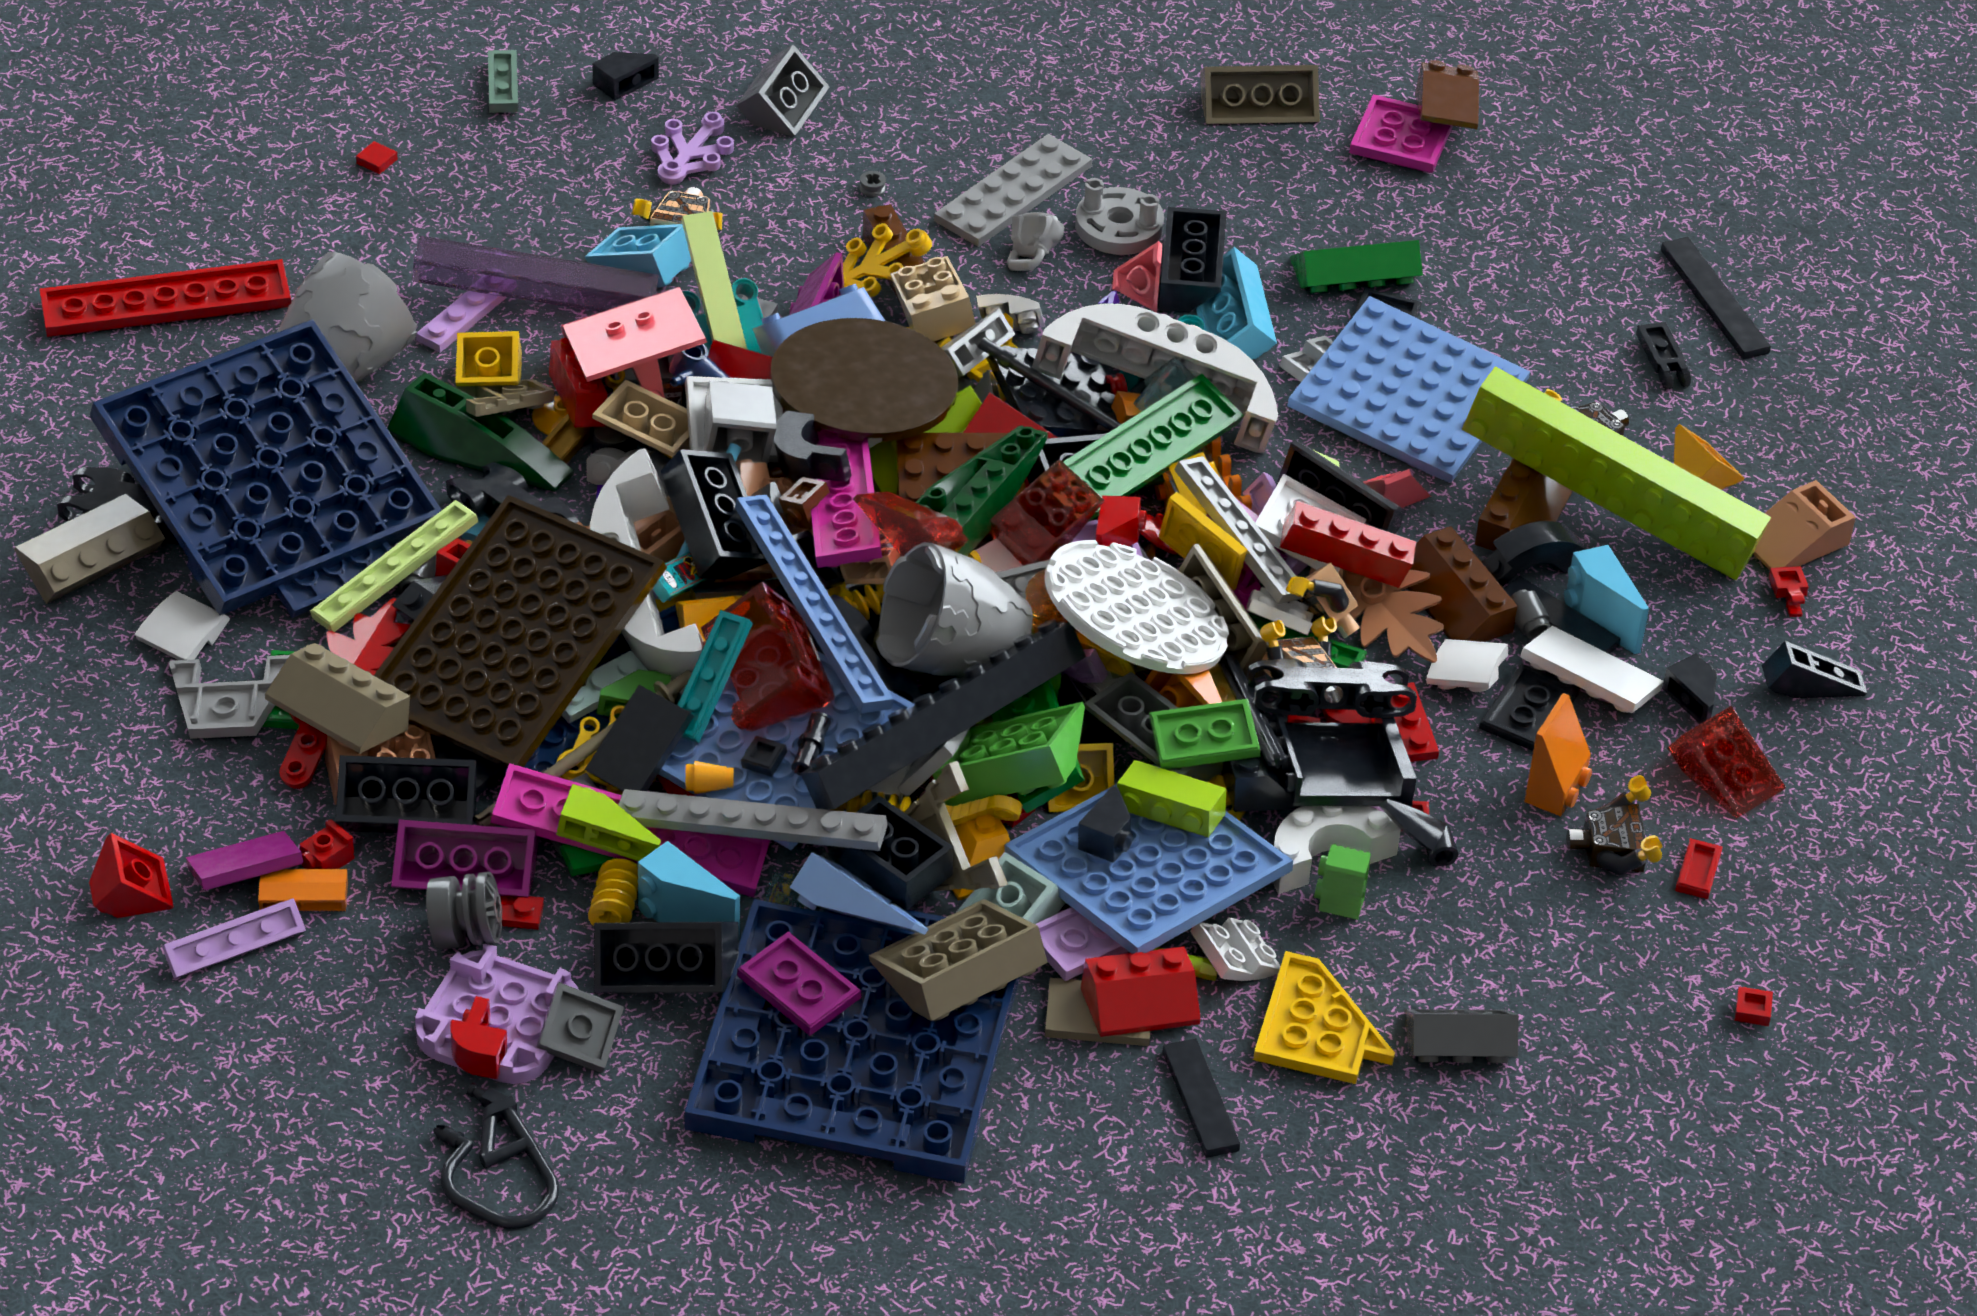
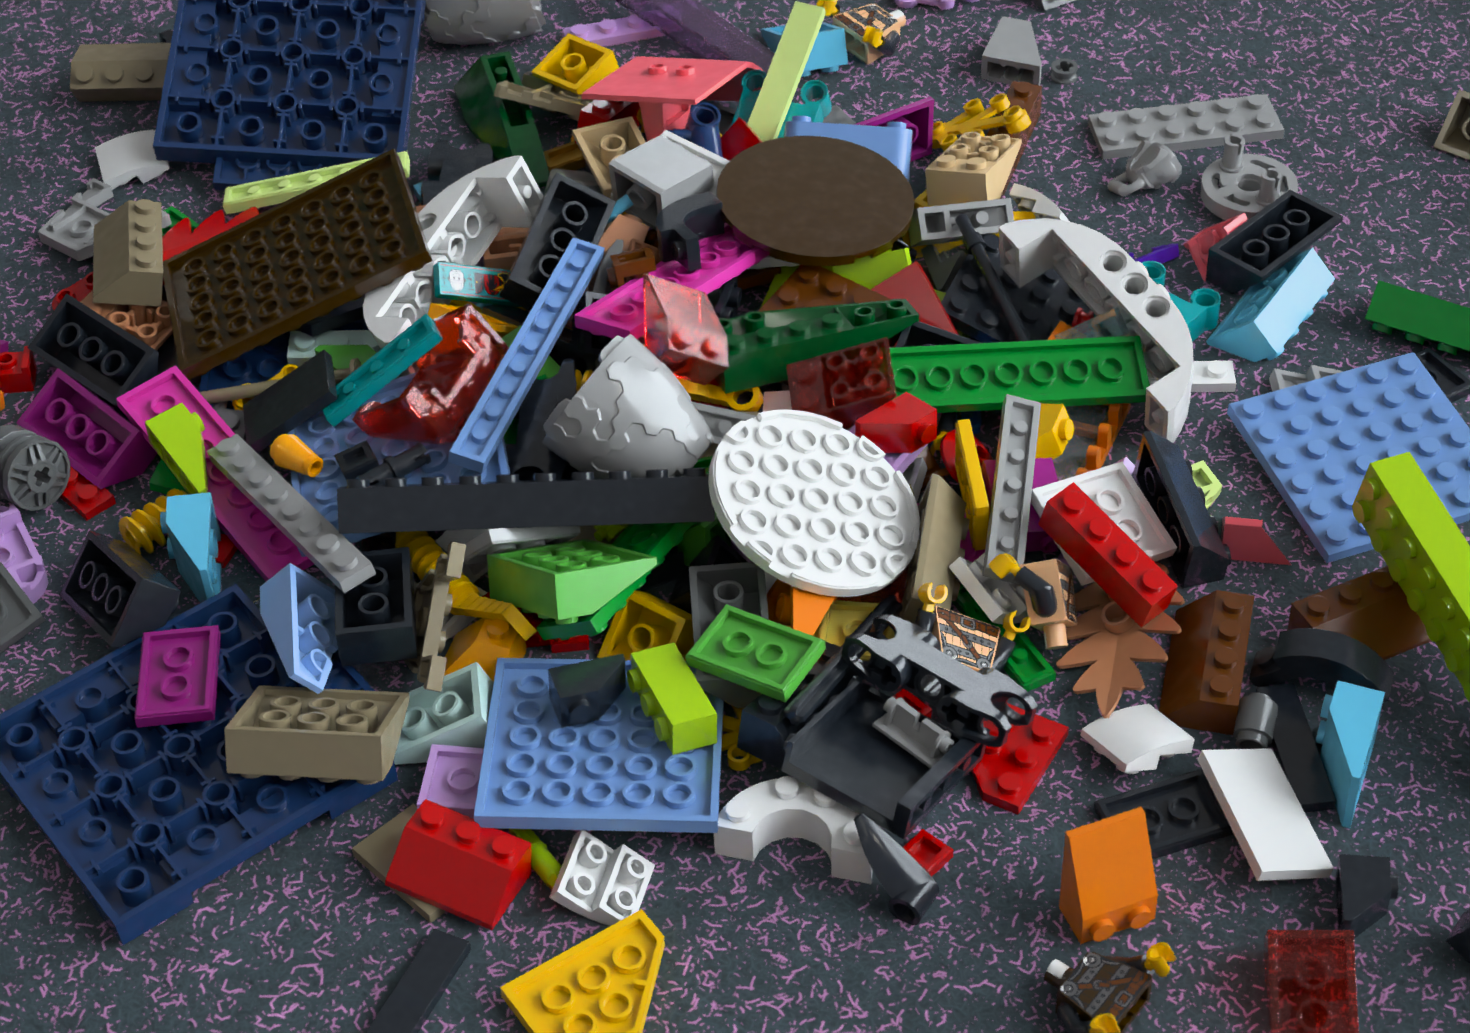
camera: 45 degrees right, 0 degrees up
(823, 186) = (1012, 53): none -> light grey slope
(1331, 733) = (922, 740): none -> light grey hinge
(1343, 881) = (761, 874): bright green brick -> none

